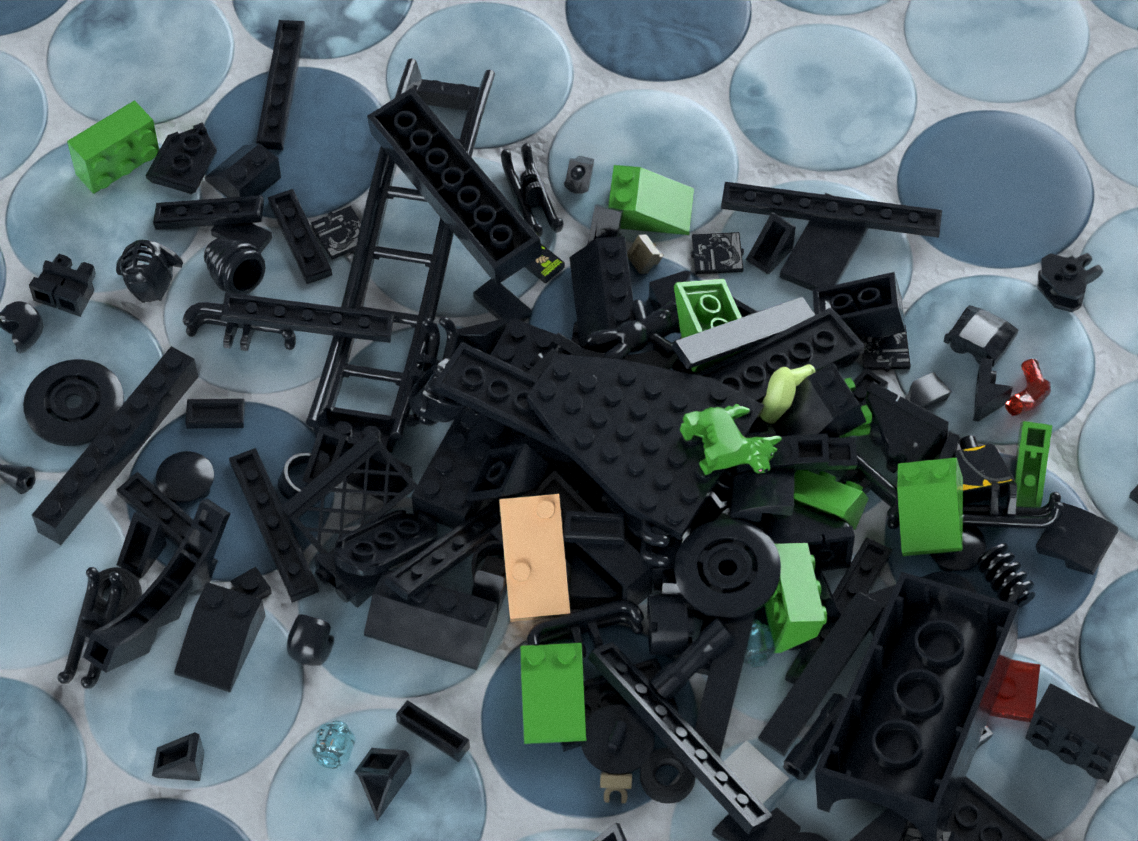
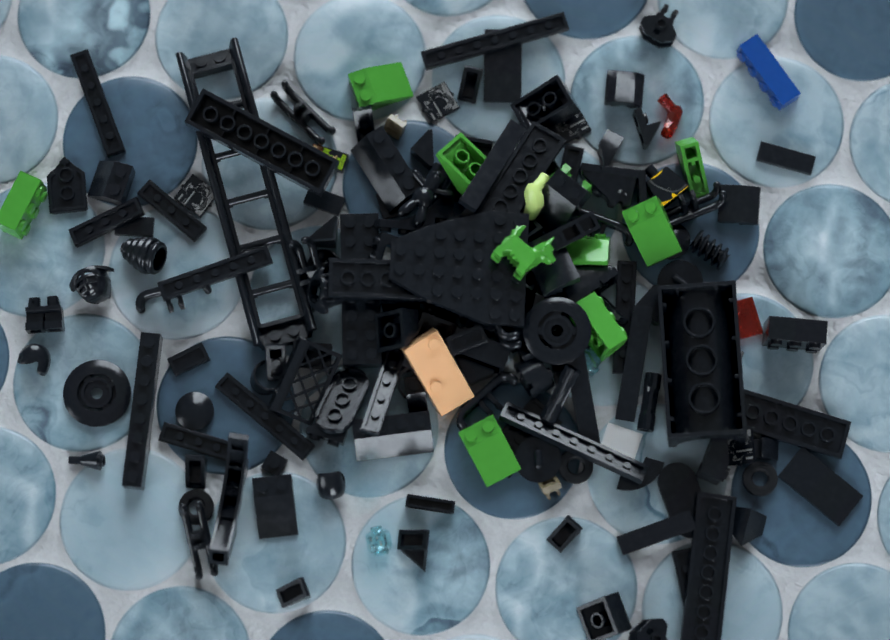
camera: 30 degrees left, 20 degrees up
(579, 174) = (326, 85): black piece -> none

